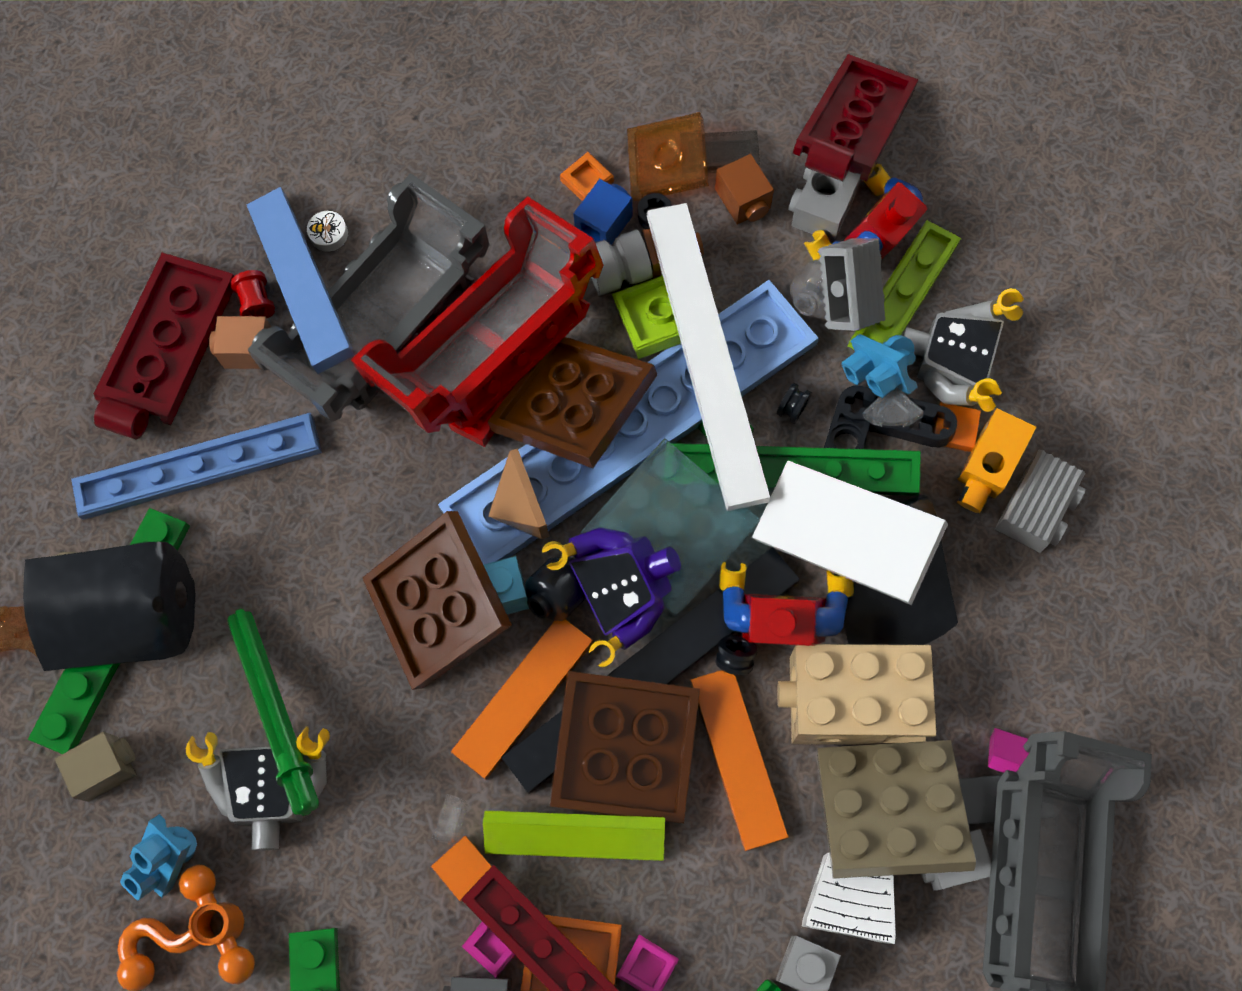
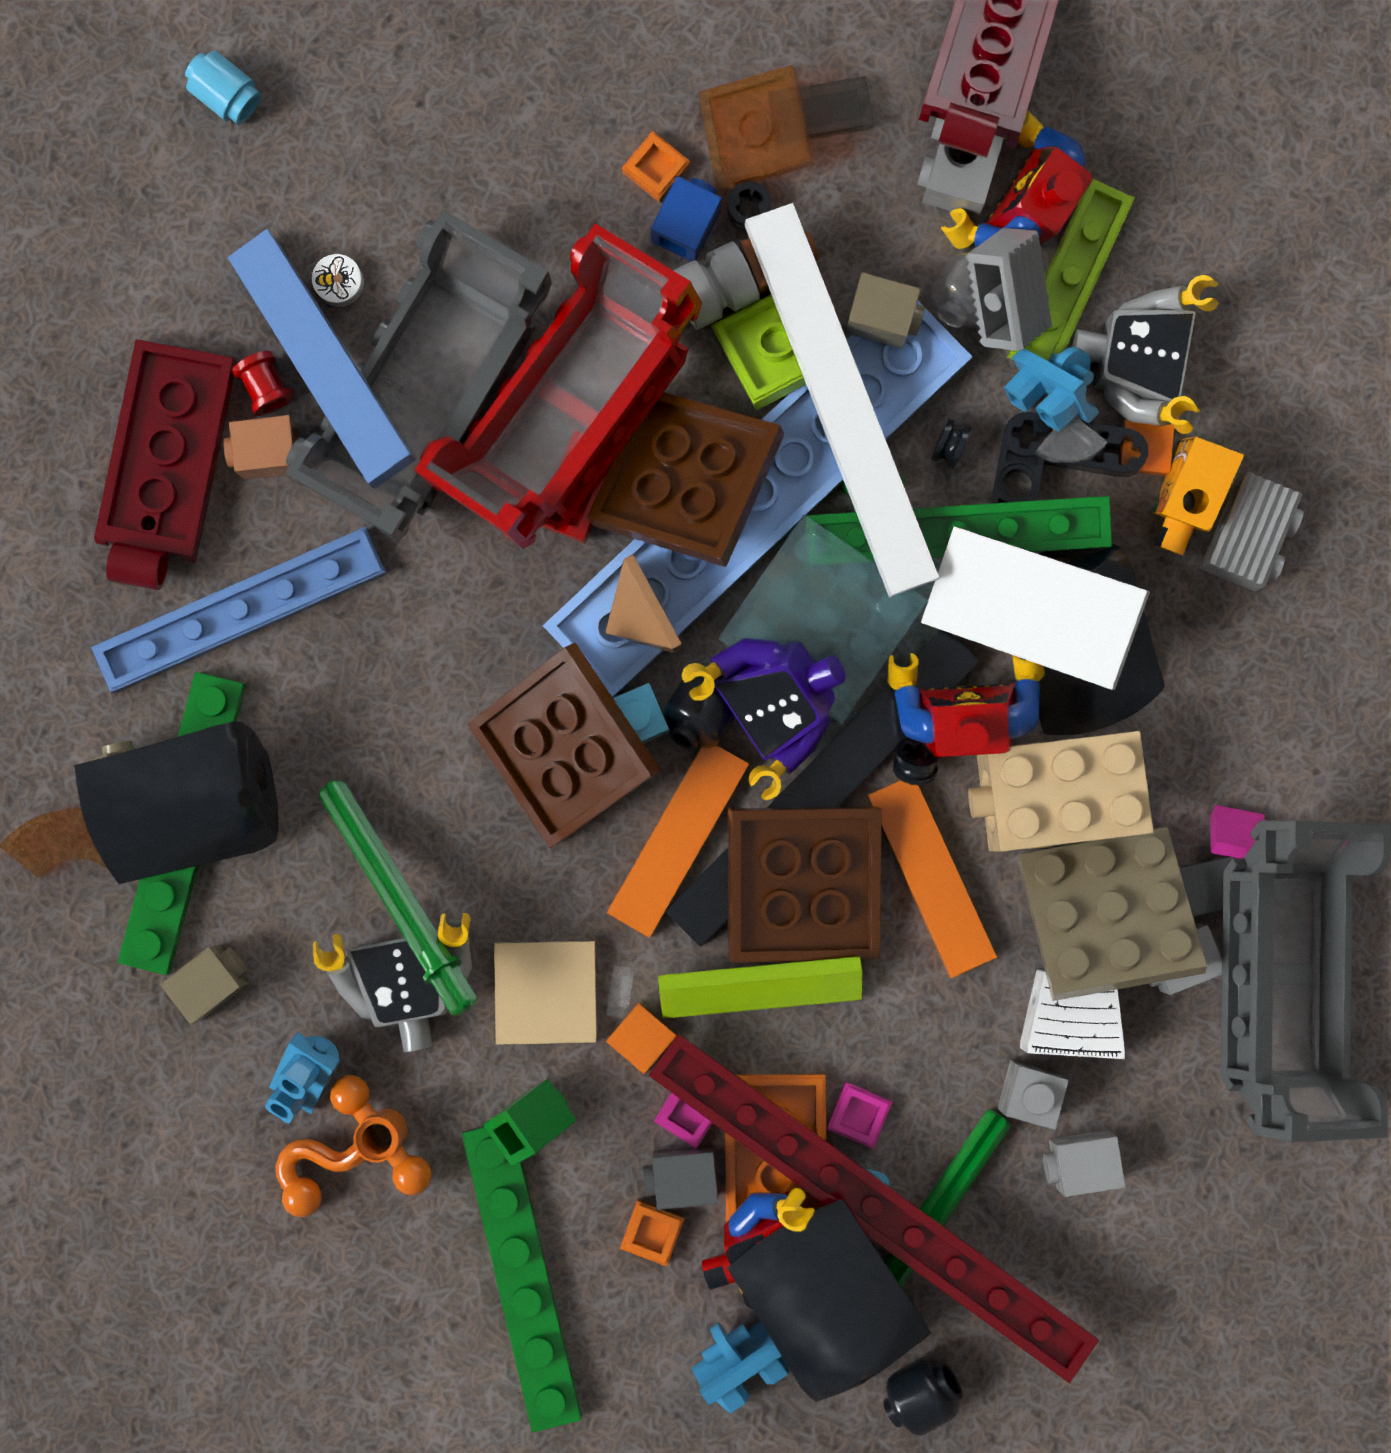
camera: 15 degrees left, 15 degrees up
(269, 88) = (222, 87): none -> medium azure brick
(349, 928) = (530, 1122): none -> green brick
(386, 816) = (545, 992): none -> tan tile
(744, 189) = (859, 164): dark orange brick -> none
(749, 291) = (884, 311): none -> dark tan brick

